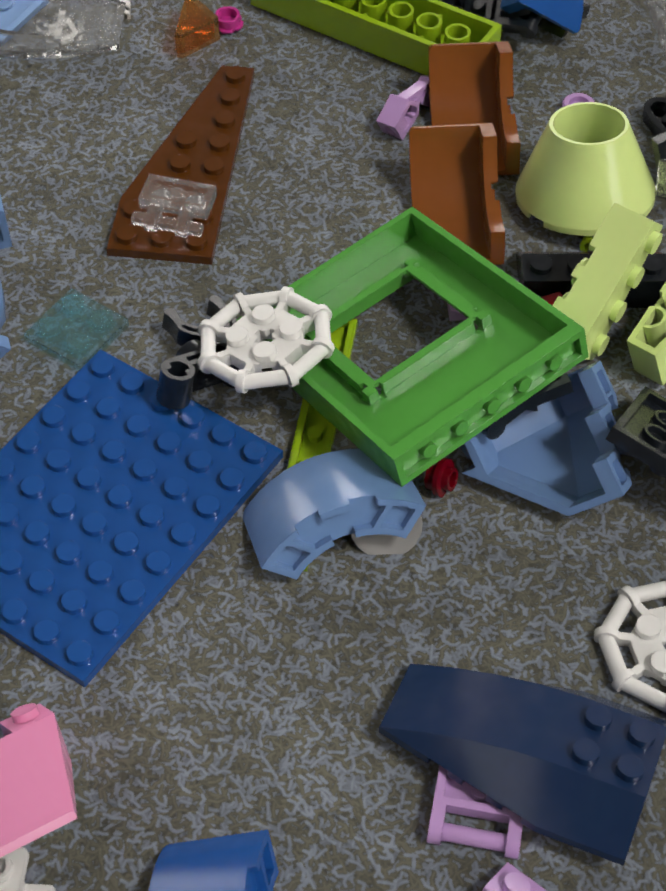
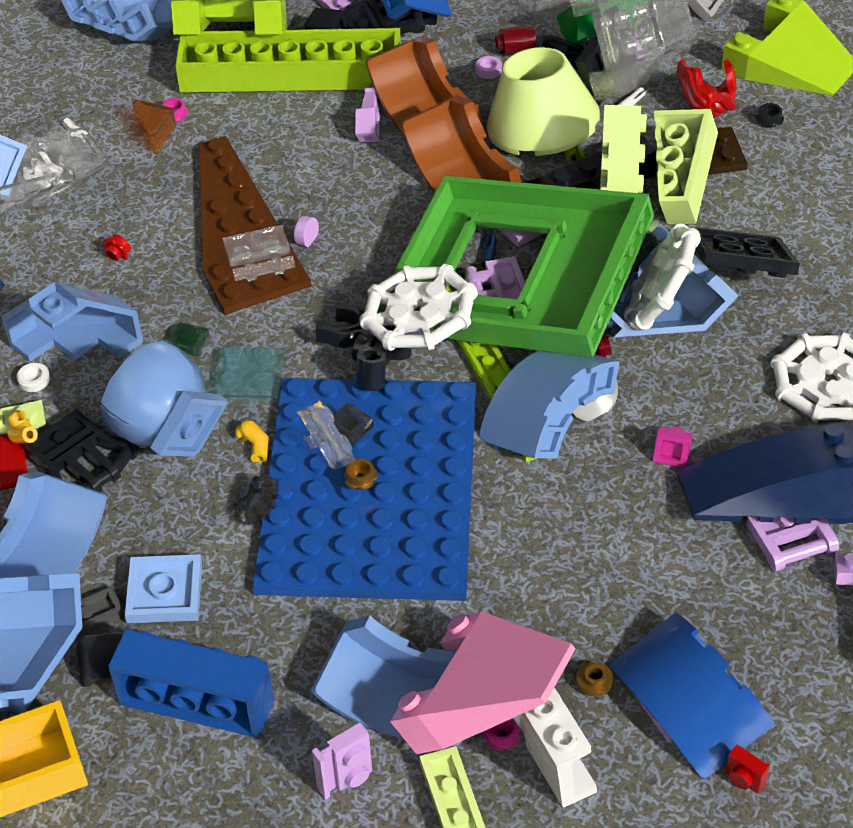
camera: 30 degrees left, 5 degrees down
(28, 401) = (257, 437): none -> yellow arm
(51, 264) = (189, 338): none -> clear green plate
(61, 138) = (116, 247): none -> red plate
(66, 429) = (325, 435): none -> clear plate
(73, 485) = (360, 474): none -> pearl gold plate
(109, 432) = (352, 423): none -> clear smoke plate
(134, 866) = (594, 687): none -> pearl gold plate
(247, 203) = (306, 231): none -> lavender tile
(398, 346) = (501, 274): none -> lavender plate
(416, 311) = (488, 251): none -> dark blue pin
(426, 632) = (672, 446): none -> dark pink tile
(548, 431) = (662, 276): none -> white plate
(626, 89) = (515, 39): none -> dark red brick

